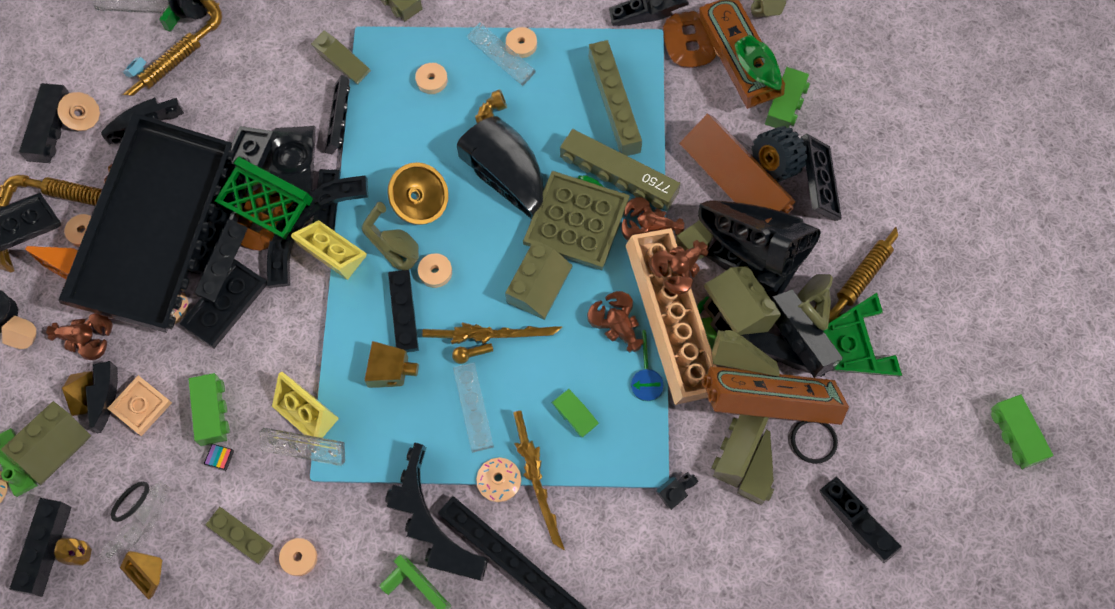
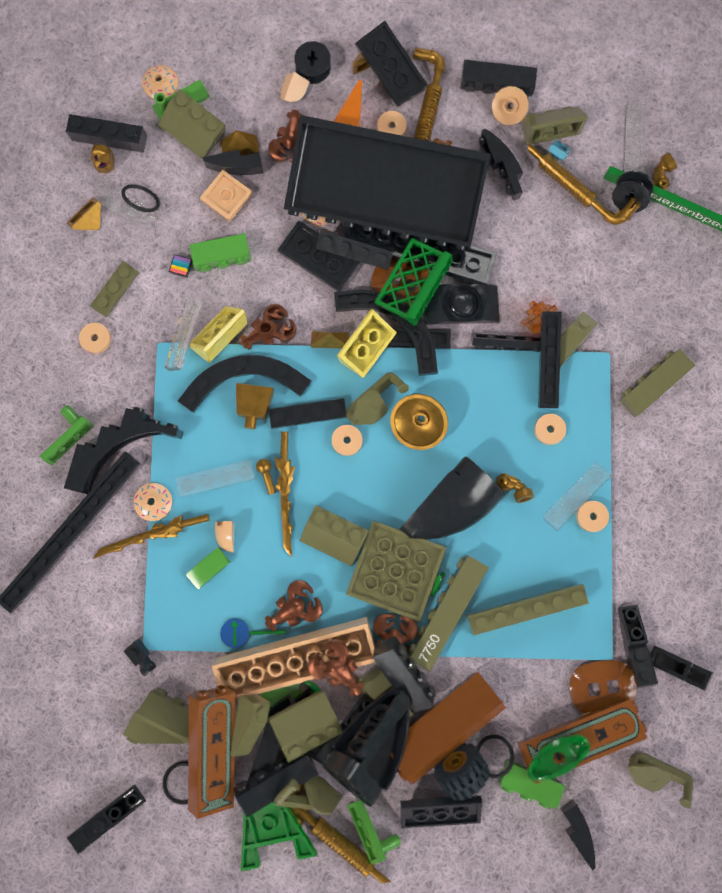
camera: 85 degrees right, 15 degrees up
(106, 70) = (553, 124): none -> olive slope
(304, 354) = (268, 329): none -> copper animal
(309, 87) = (532, 321): none -> clear orange hips
(321, 291) = (327, 339): none -> pearl gold slope
(345, 381) = (242, 366): none -> black plate
(359, 73) = (549, 359): none -> black plate
(538, 395) = (225, 535): none -> light nougat brick
(681, 206) = (403, 673): none -> black brick
(767, 111) = (494, 736): none -> black tyre
(831, 58) = (579, 832): none -> black slope
(859, 240) = (374, 848): none -> bright green piece

